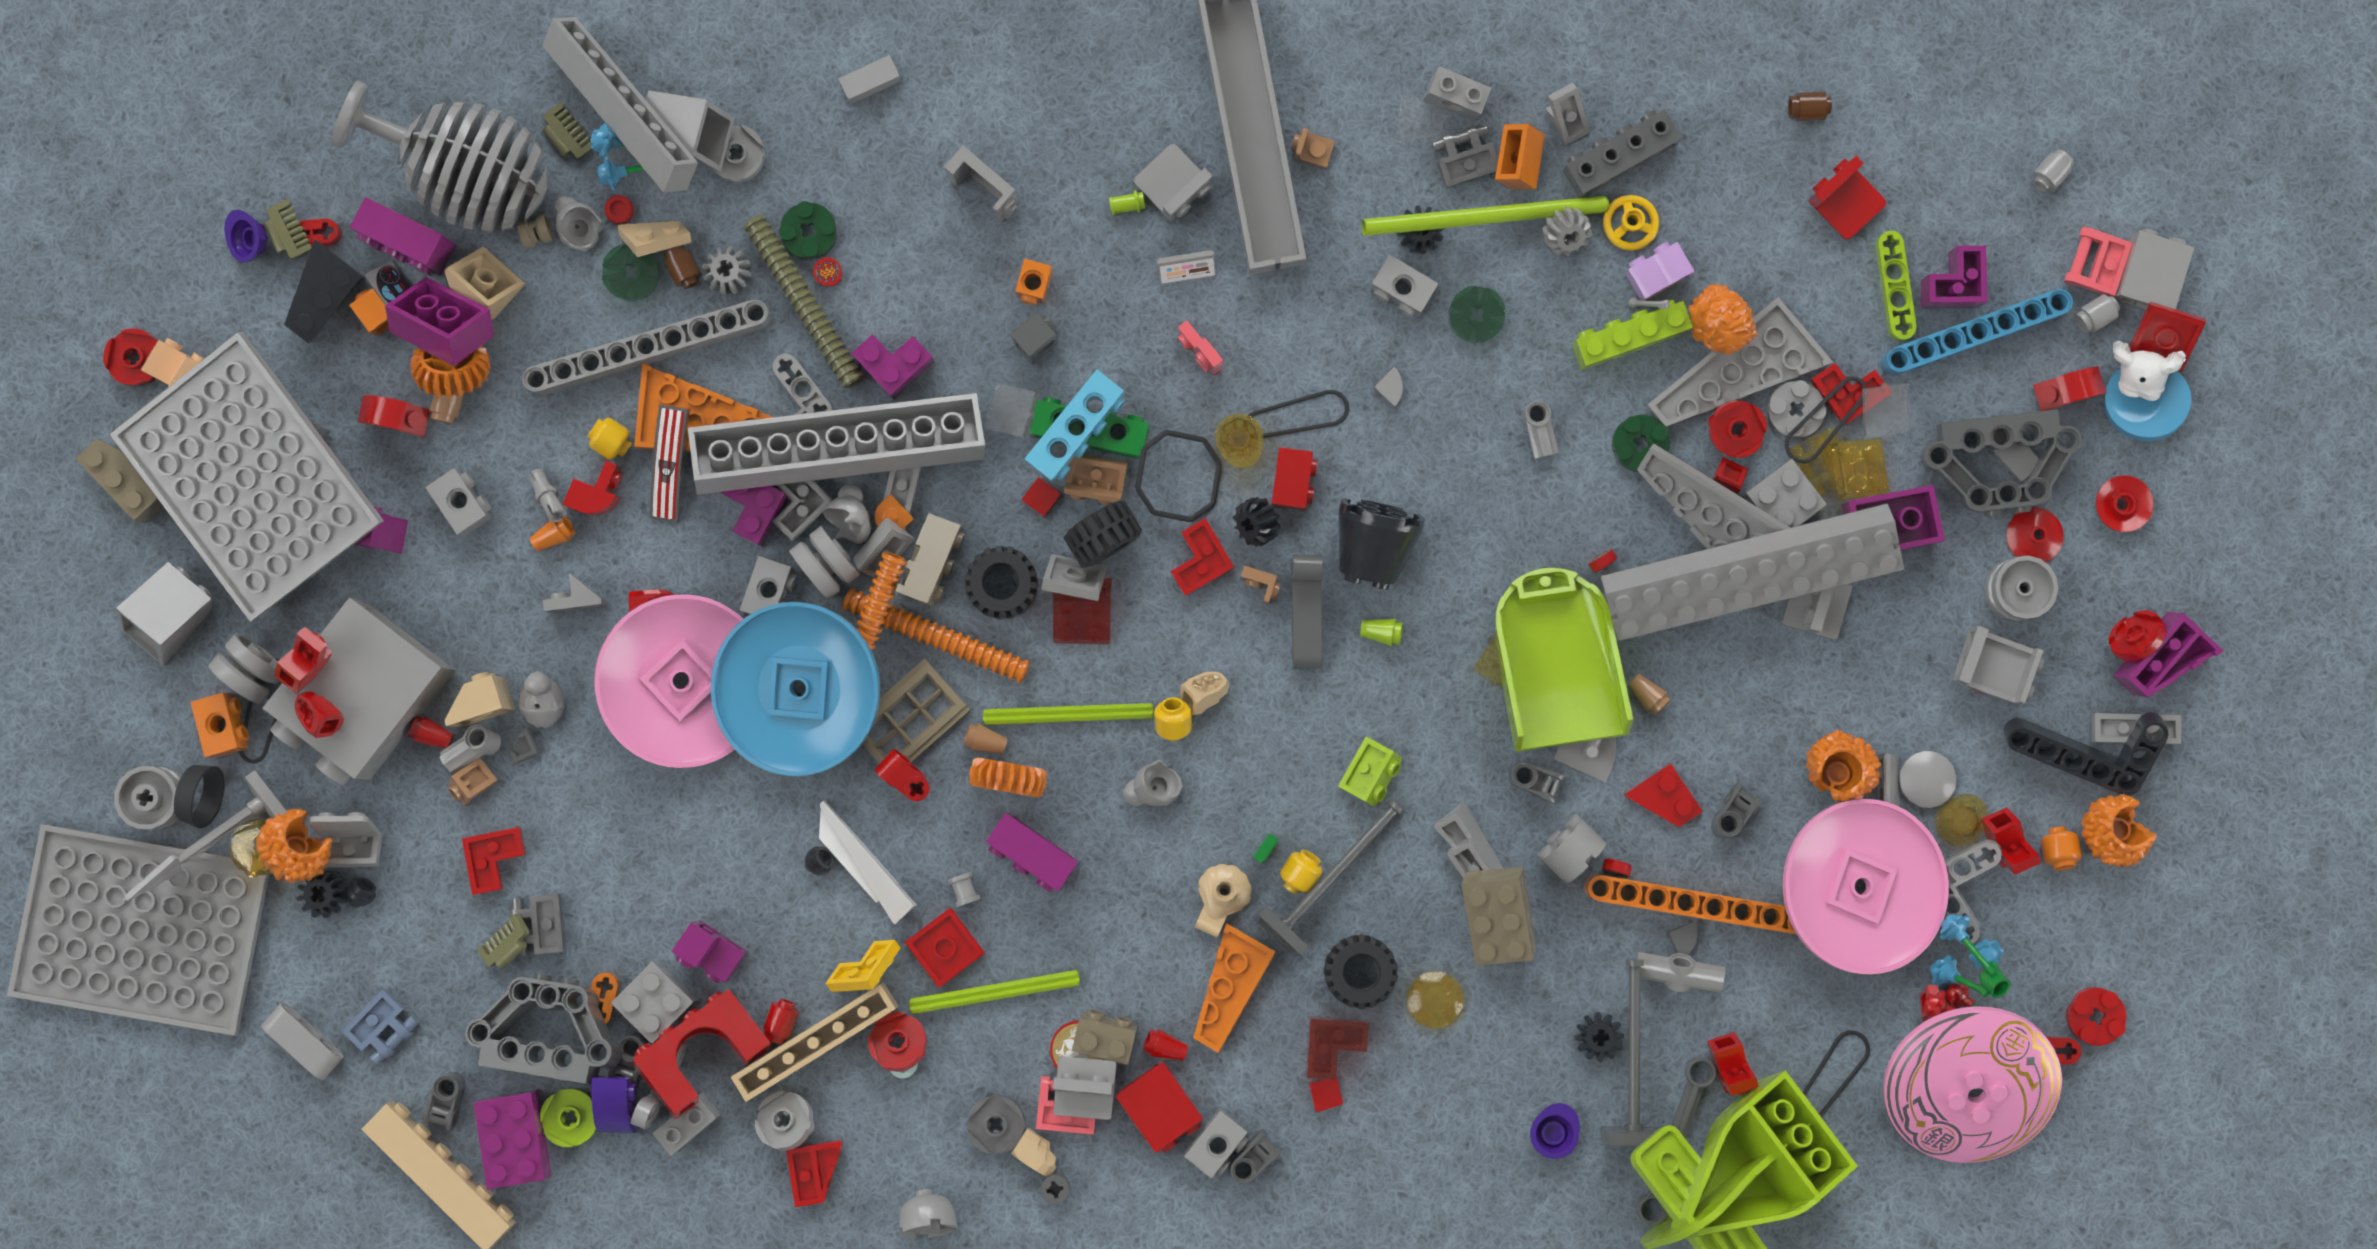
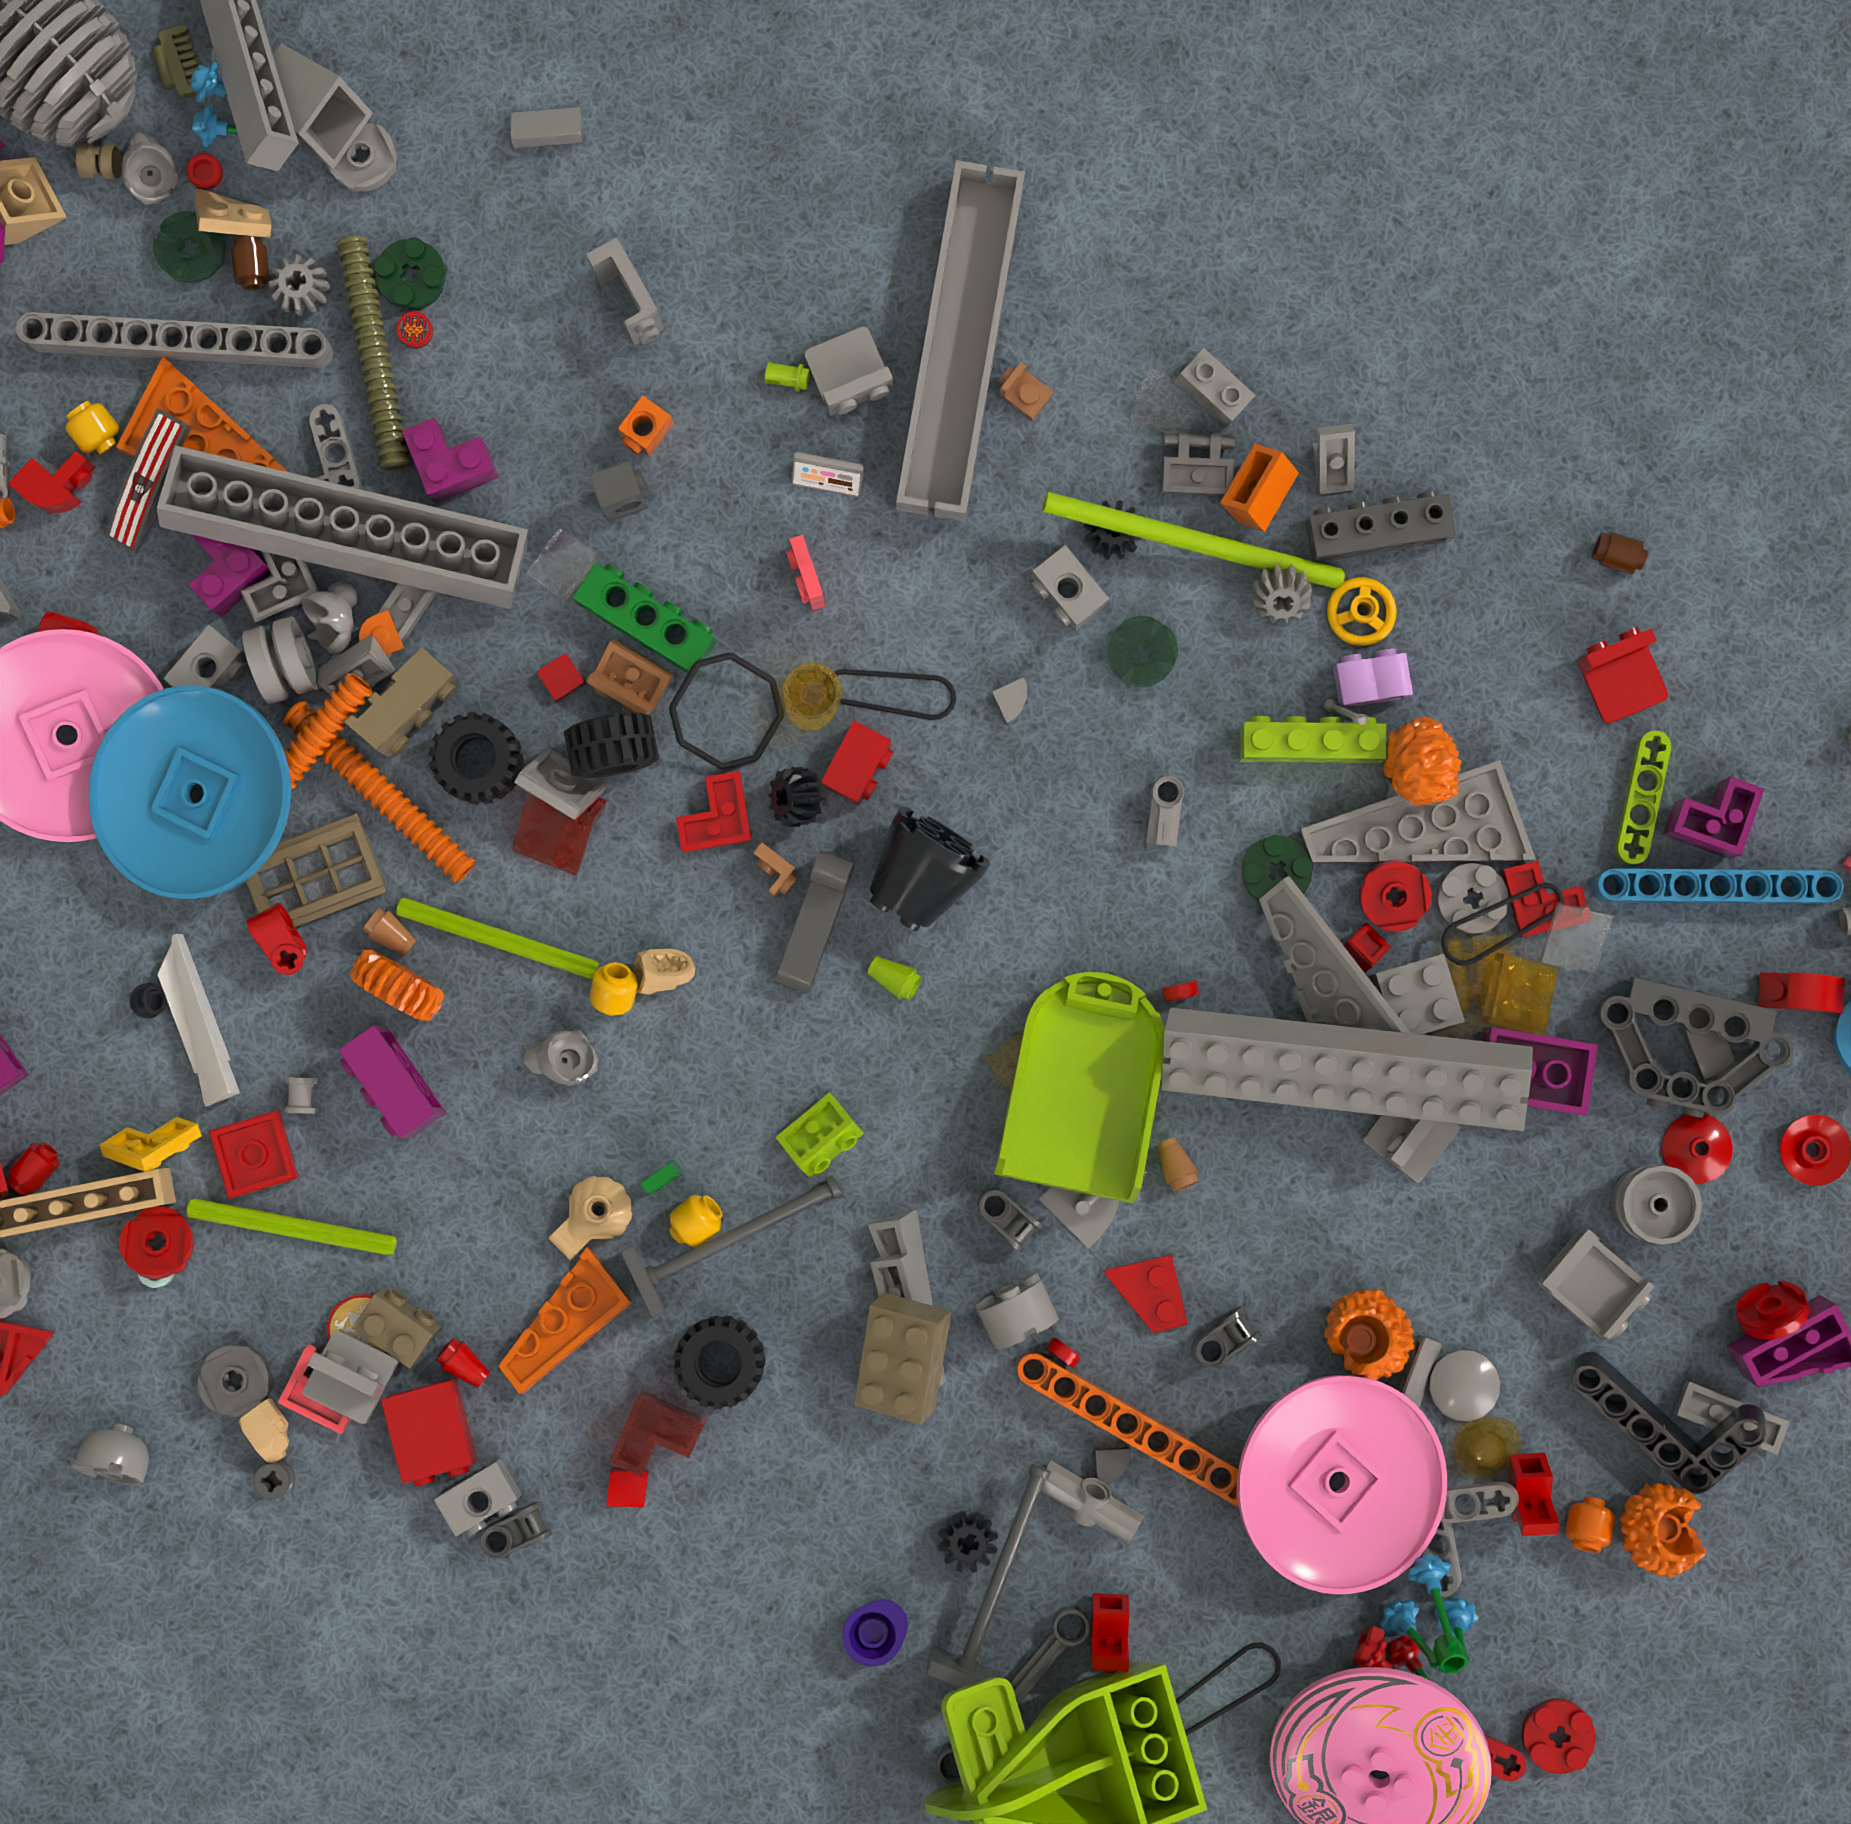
camera: 25 degrees right, 0 degrees up
(1098, 388) = (604, 609): medium azure brick -> none
(1435, 999) = (795, 1426): clear yellow dish -> none

